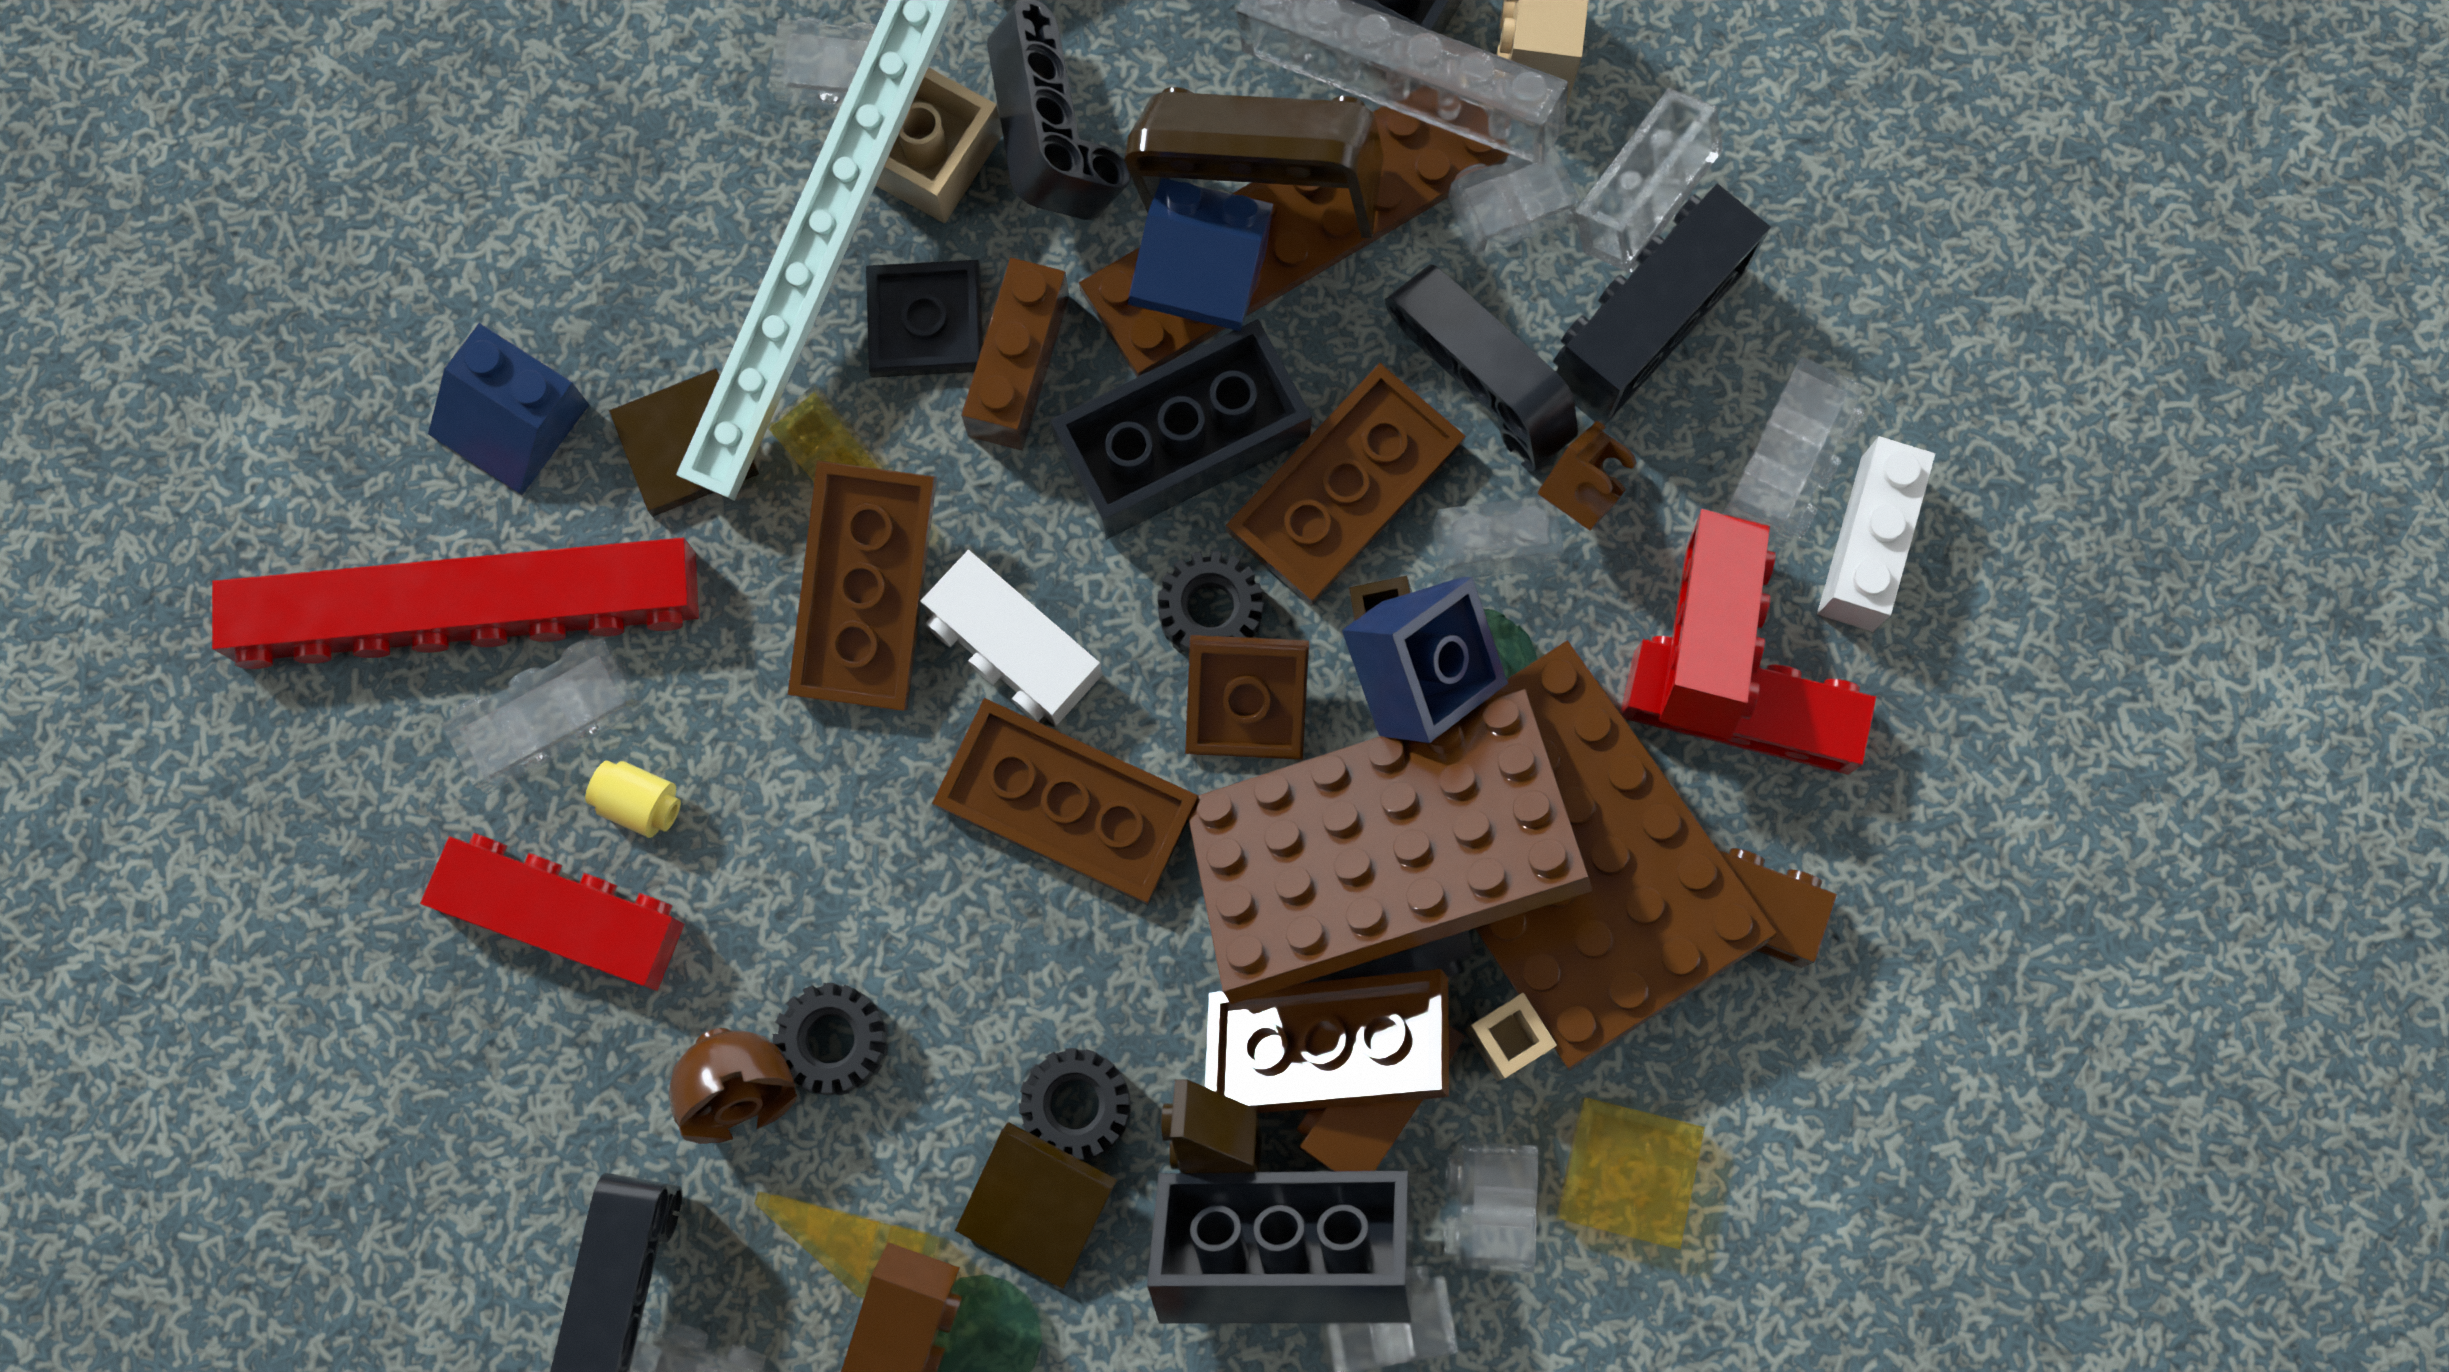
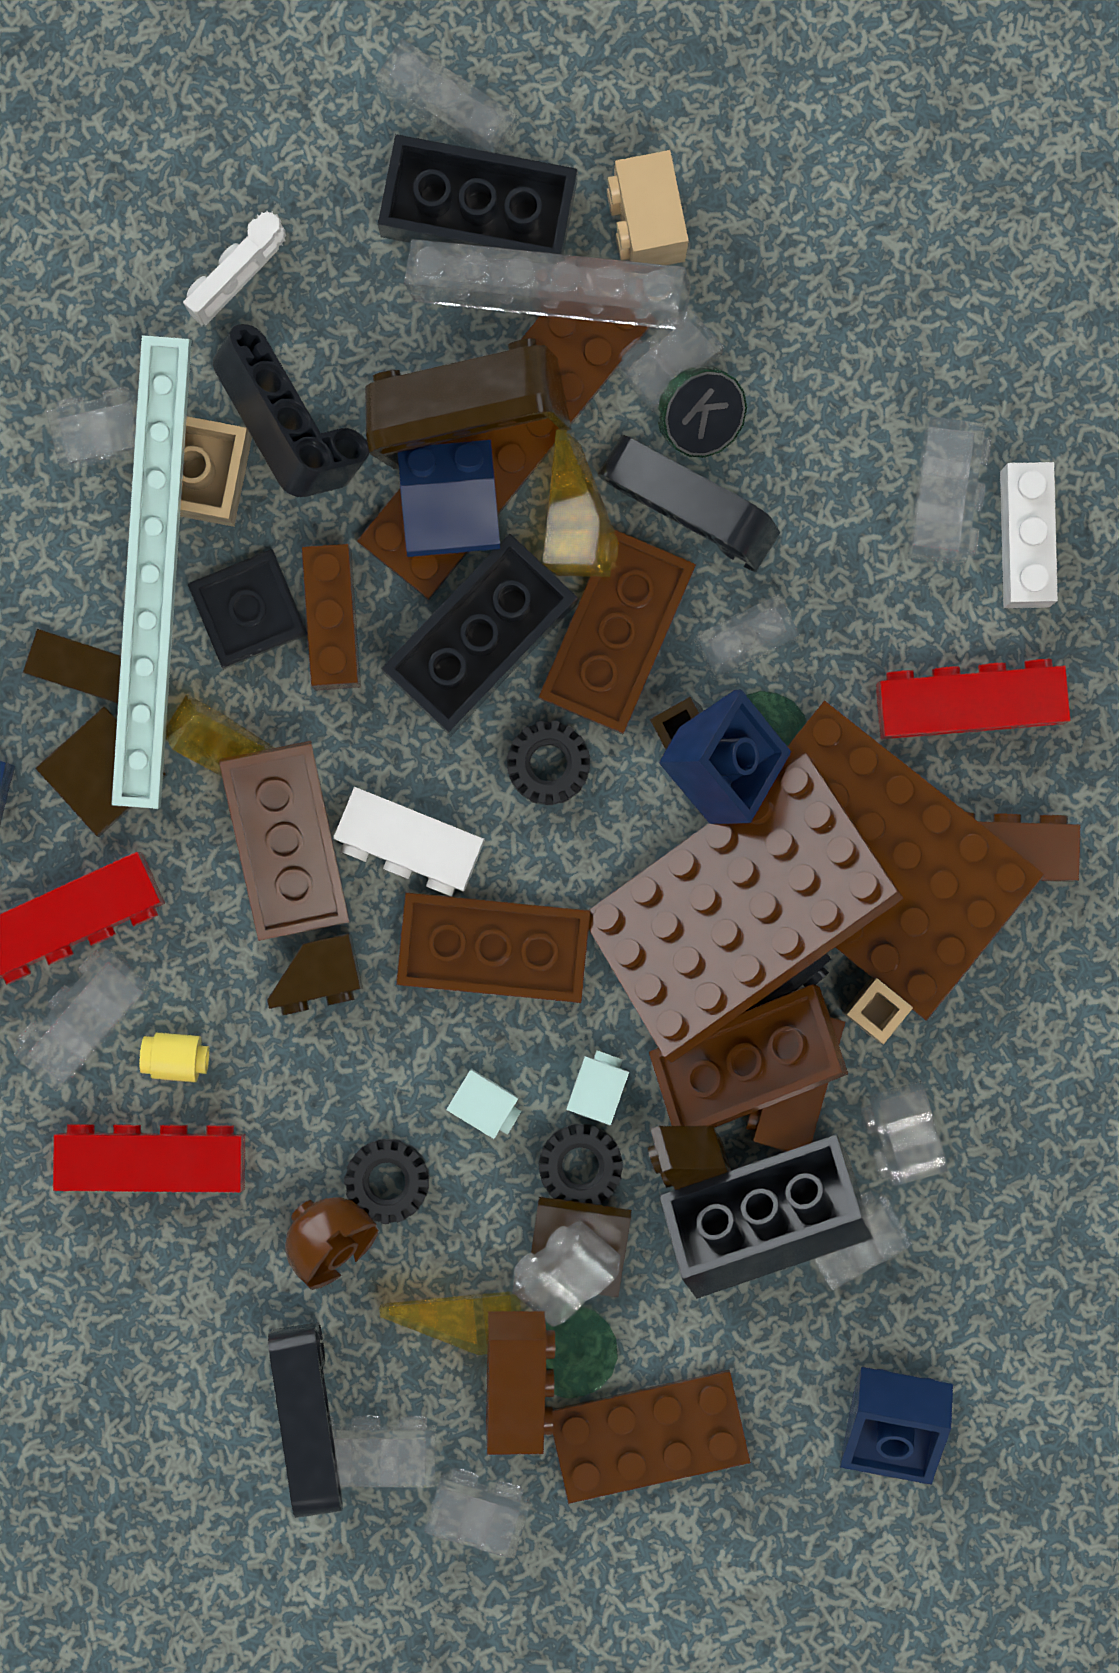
camera: 20 degrees left, 10 degrees up
(700, 312) = (74, 665): none -> dark brown tile
(843, 756) = (318, 971): none -> dark brown slope
(984, 986) = (484, 1105): none -> light aqua brick
(1005, 1229) = (566, 1272): none -> clear brick
(1131, 1014) = (598, 1087): none -> light aqua brick
(1246, 697) = (600, 824): reddish brown tile -> none
(1340, 346) = (577, 526): none -> clear yellow slope
(1531, 266) = (702, 411): none -> black tile
(1579, 480) = (798, 573): reddish brown hinge -> none
(1630, 1173) = (994, 1075): clear yellow plate -> none
(1649, 179) = (770, 309): clear brick -> none
(1659, 302) = (813, 406): black brick -> none
(1717, 626) = (931, 653): brick -> none

